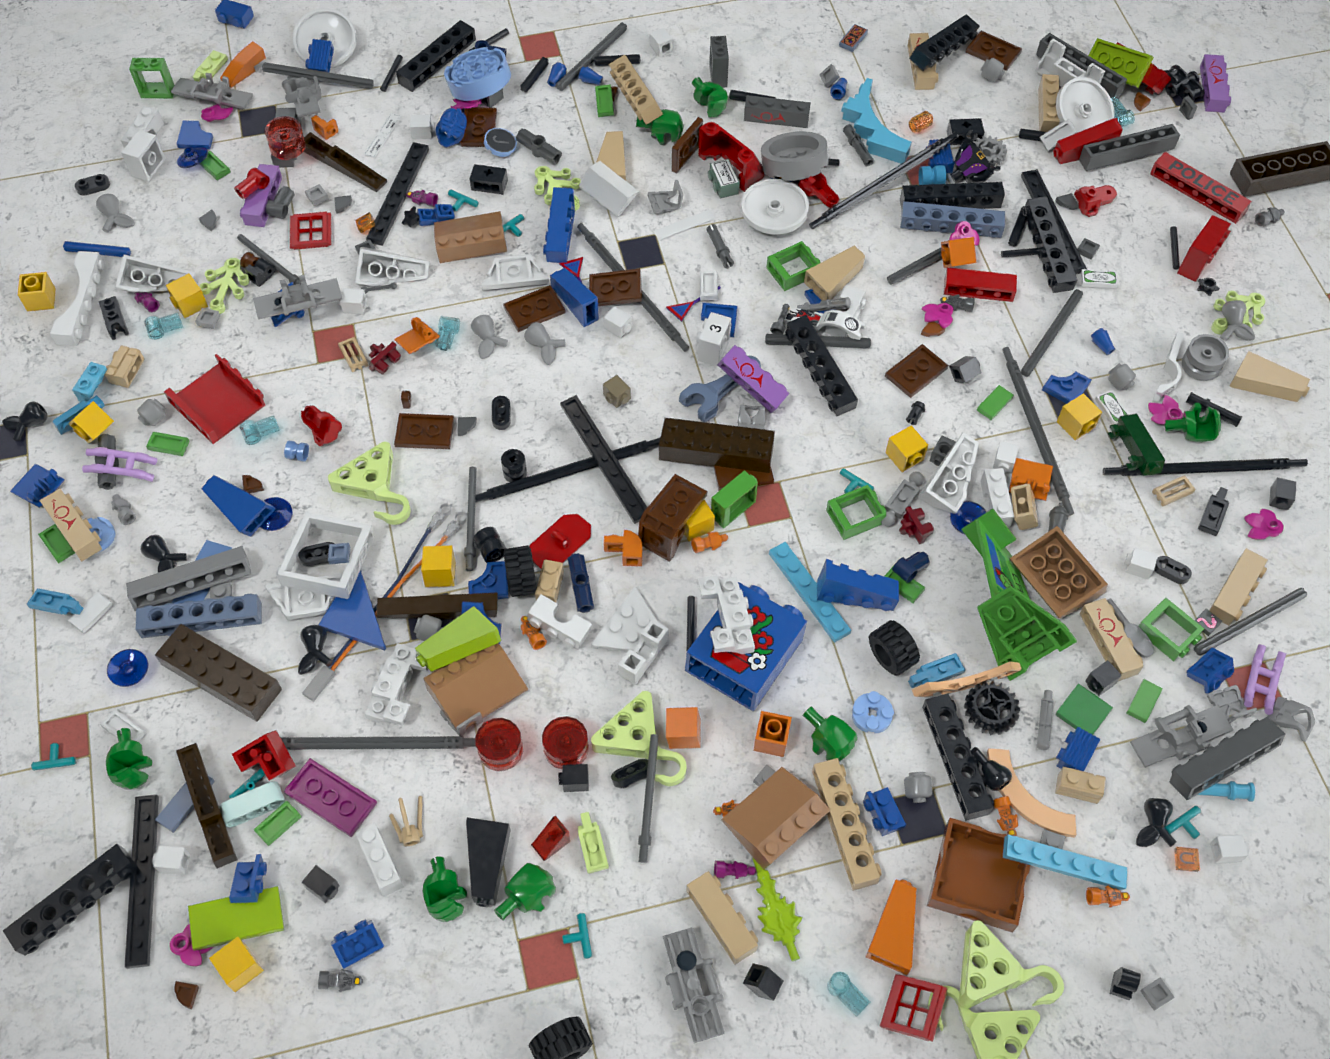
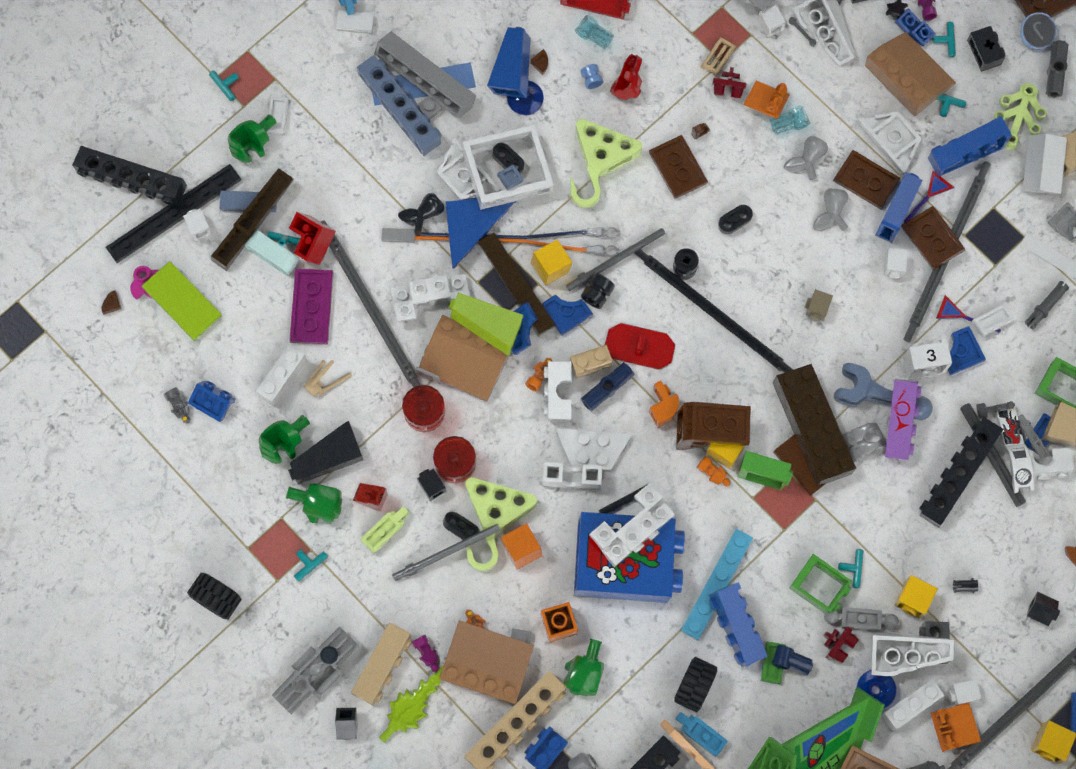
camera: 60 degrees right, 15 degrees up
(122, 662) = (321, 76): clear blue dish -> none
(155, 548) = (435, 31): black piece -> none
(218, 672) = (360, 153): dark brown brick -> none
(236, 964) = (147, 324): yellow head -> none
(248, 881) = (212, 290): blue bracket -> none
(277, 823) = (269, 281): bright green tile -> none
(321, 884) = (239, 345): black brick -> none
(427, 627) = (492, 290): light grey head -> none
(465, 424) = (705, 197): dark grey tile -> none
(520, 571) = (583, 331): black tyre -> none
(604, 458) = (740, 335): black tile -> none
(871, 723) = (640, 691): light blue plate -> none
(916, 370) = (1017, 563): reddish brown tile -> none
(995, 402) = (1025, 655): bright green tile -> none
(1024, 506) = (917, 734): tan brick -> none

